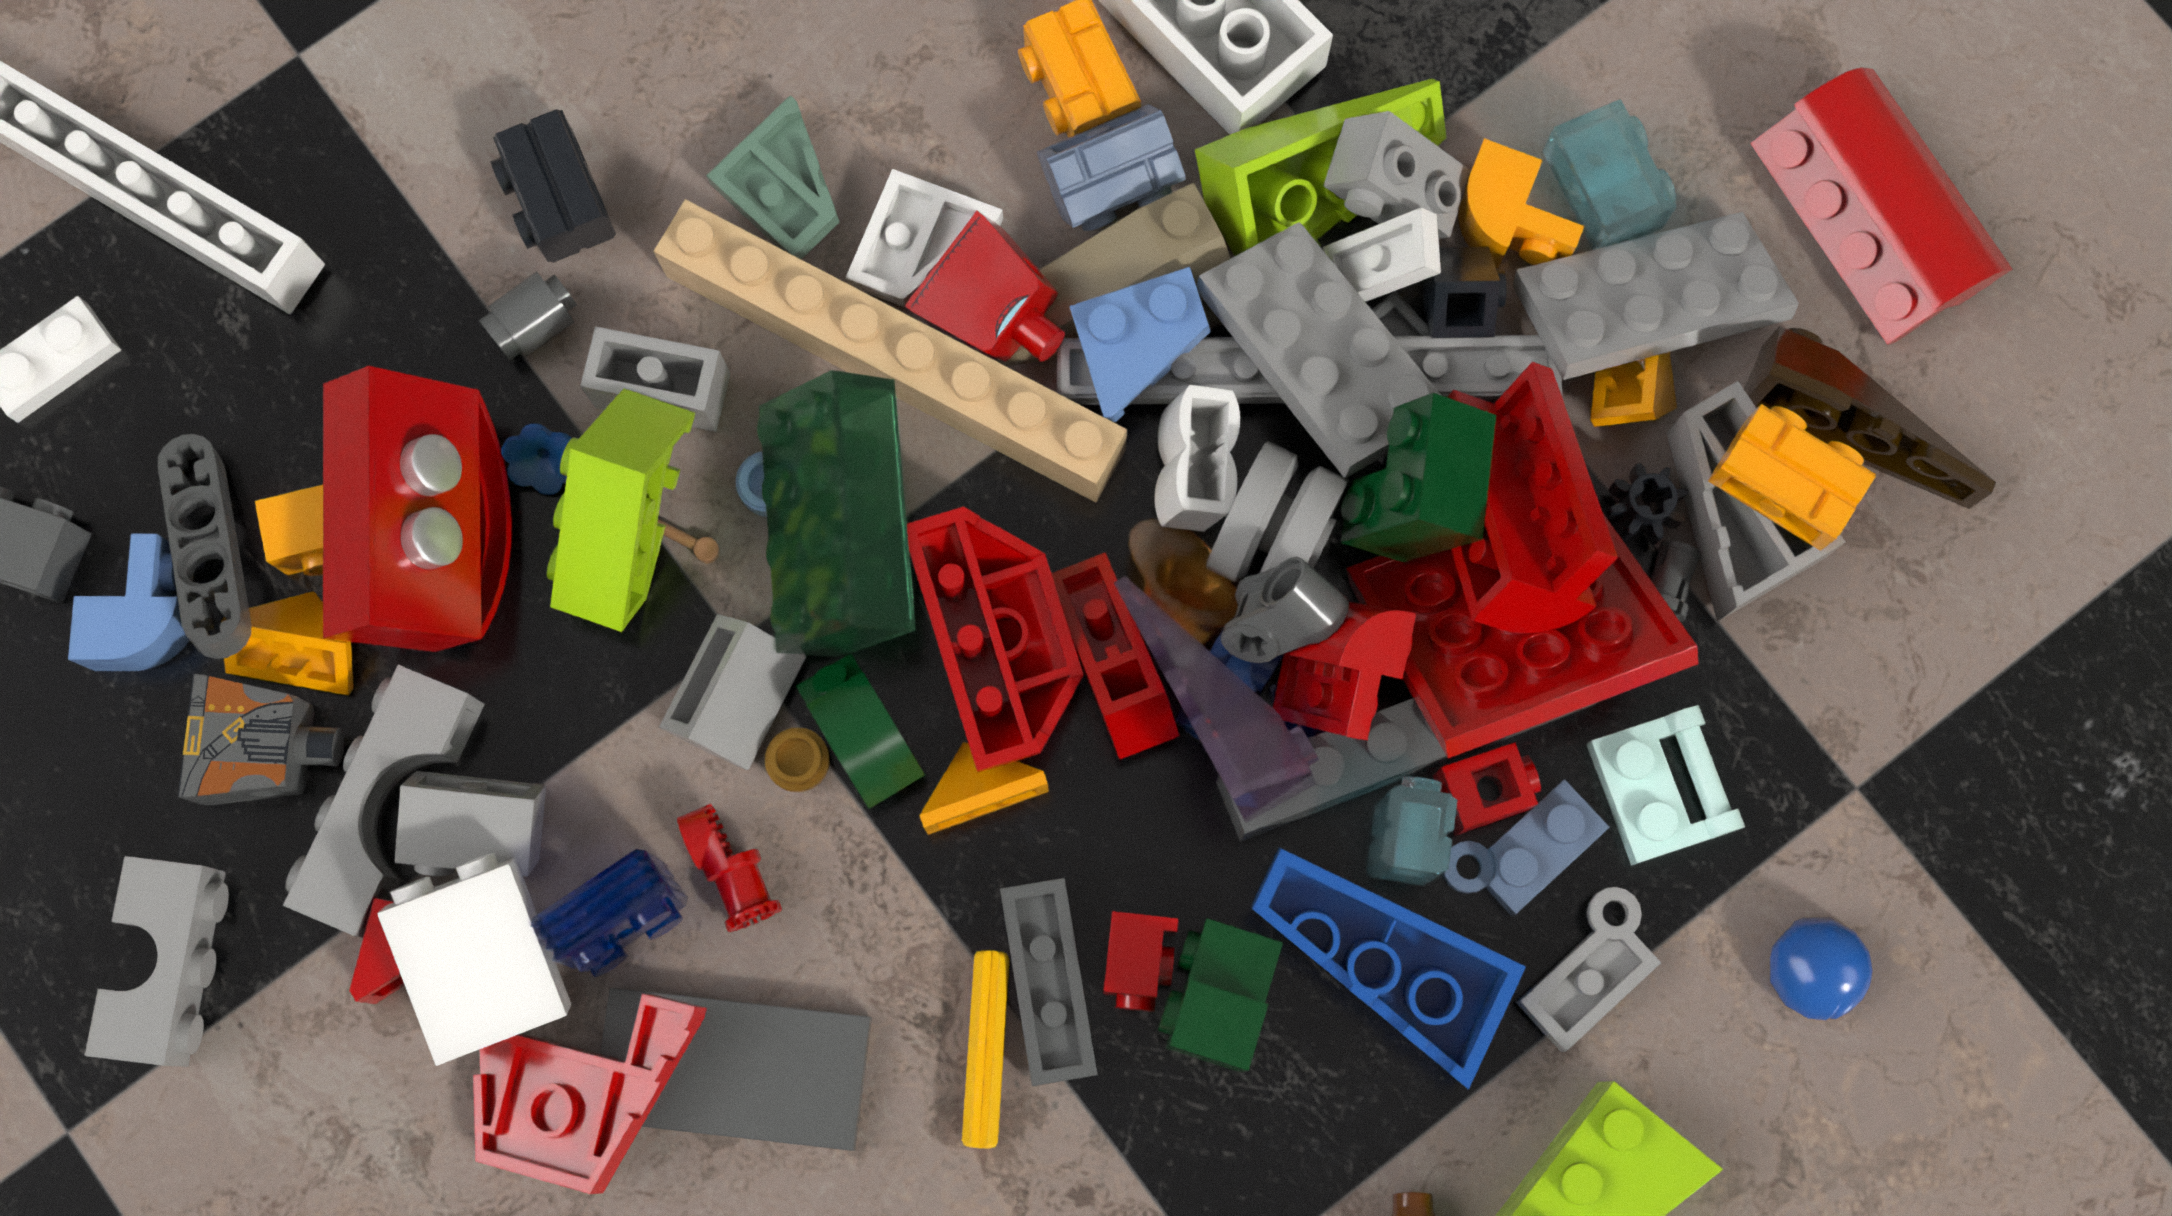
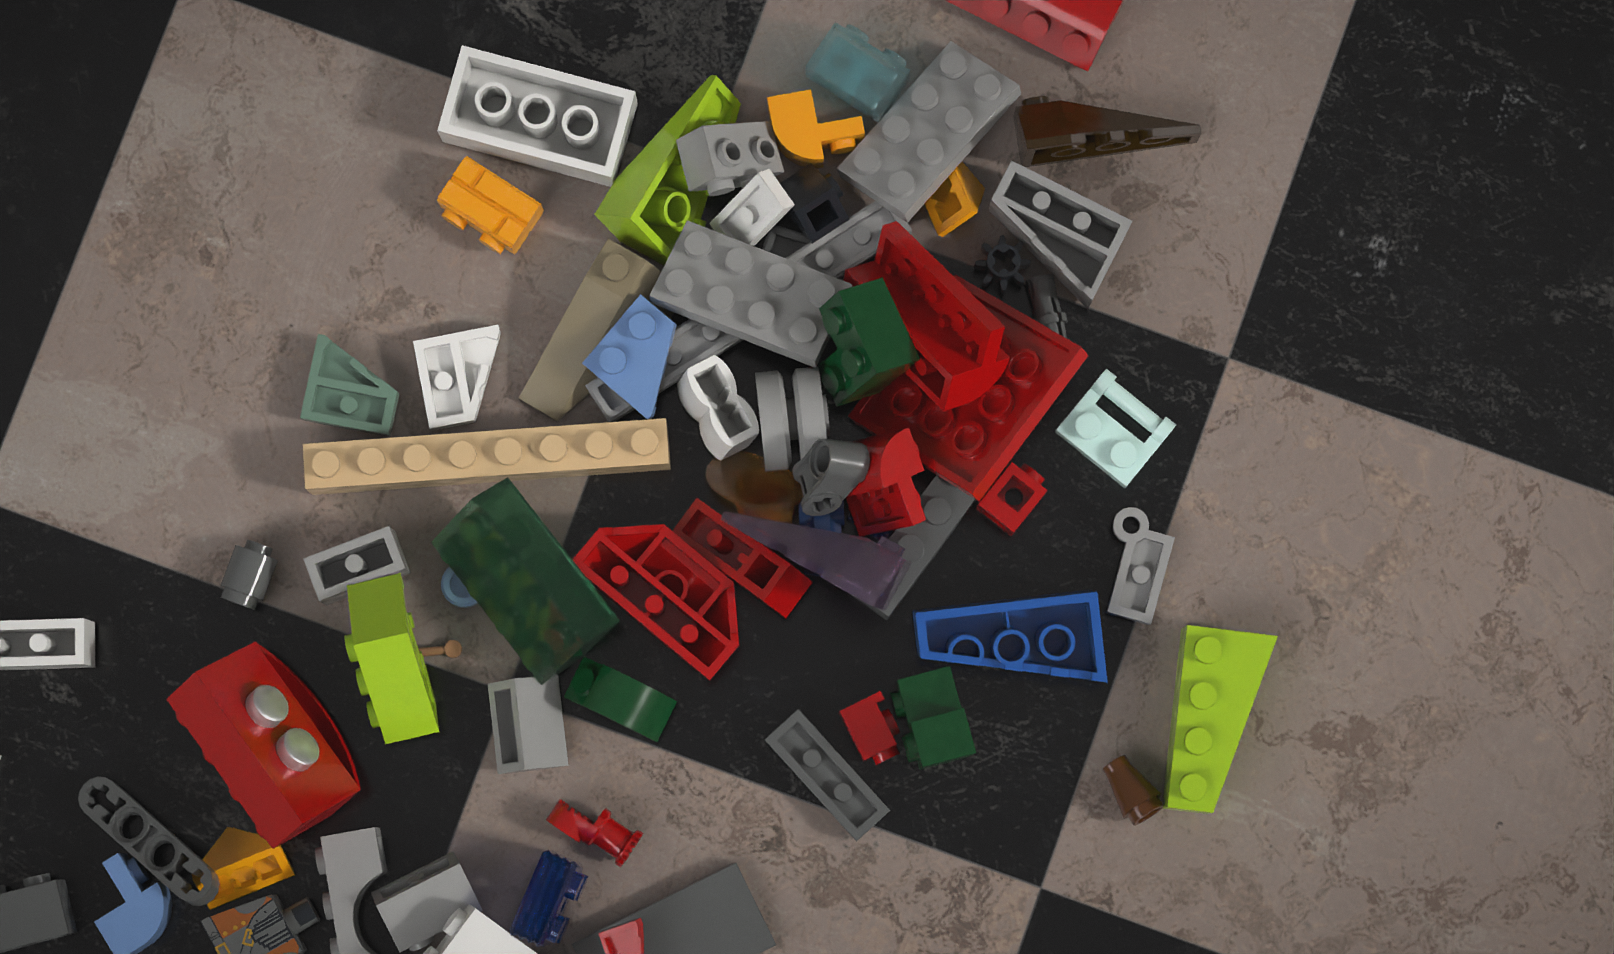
camera: 35 degrees left, 5 degrees up
(293, 531) = (202, 794): light orange brick -> none
(536, 458) = (317, 658): blue plant -> none
(553, 187) = (208, 484): black brick -> none
(797, 760) = (593, 740): pearl gold plate -> none
(970, 794) = (708, 696): light orange slope -> none
(985, 1049) = (815, 837): yellow axle -> none
(989, 294) = (527, 385): red torso -> none
(1112, 167) = (549, 256): sand blue brick -> none
(1412, 832) = (984, 554): clear light blue brick -> none
(1531, 850) = (1060, 517): sand blue hinge -> none
(1793, 475) = (1077, 203): light orange brick -> none
(1820, 968) = (1268, 480): blue hair -> none

